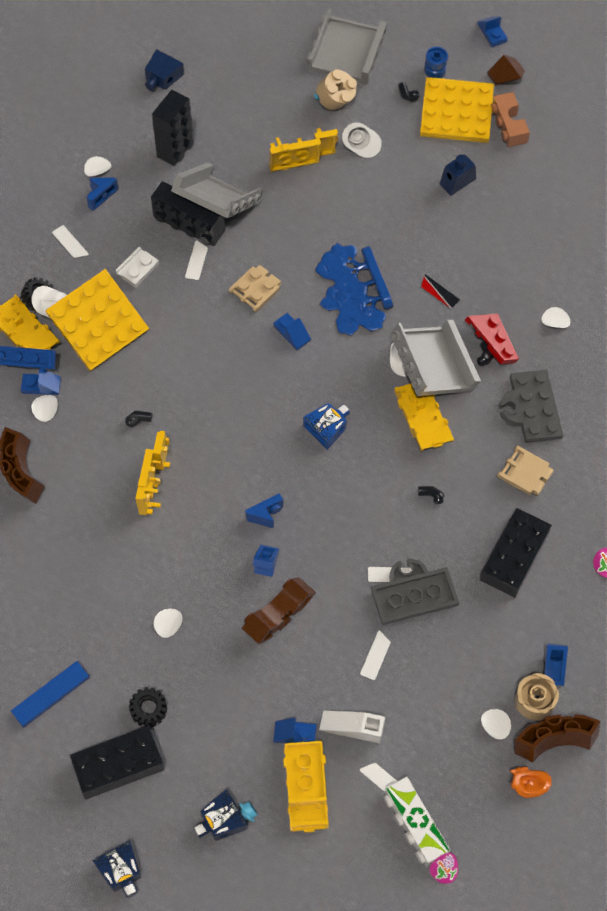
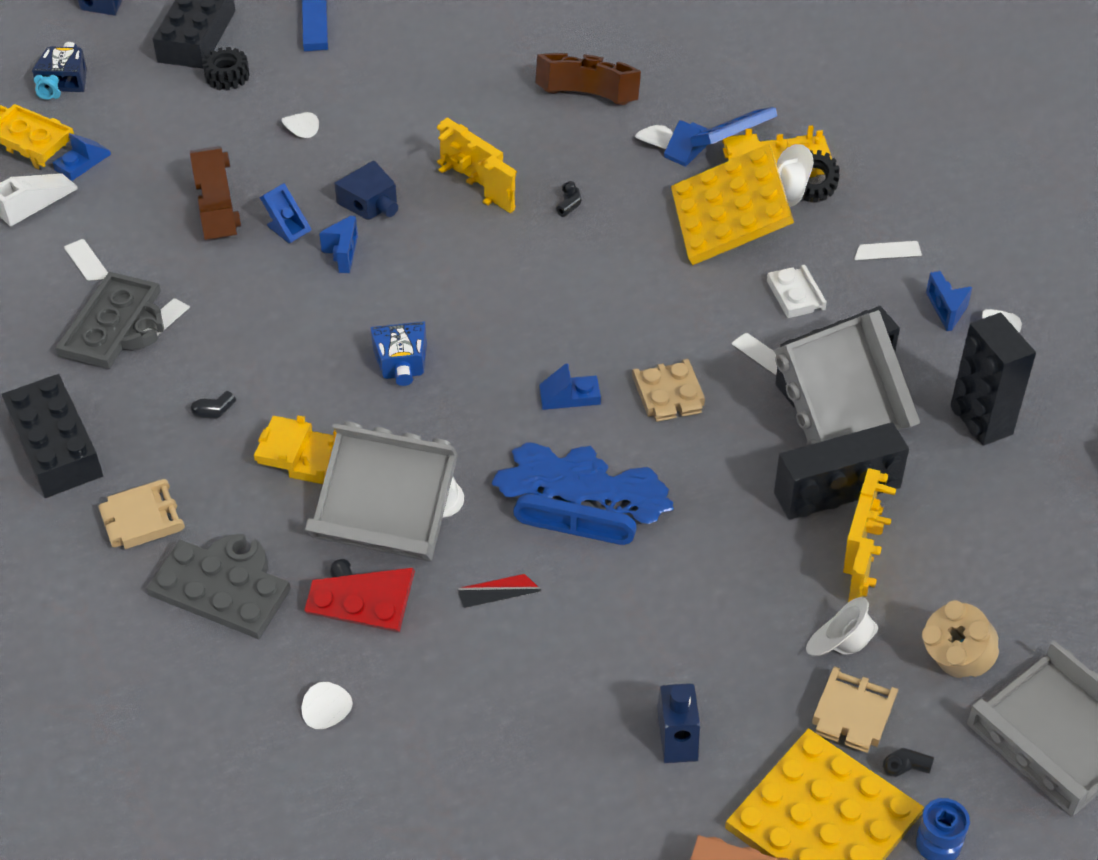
camera: 125 degrees right, 15 degrees down
(210, 527) = (367, 192): none -> dark blue torso
(264, 172) = (835, 469): none -> black brick
(398, 120) = (853, 711): none -> tan plate

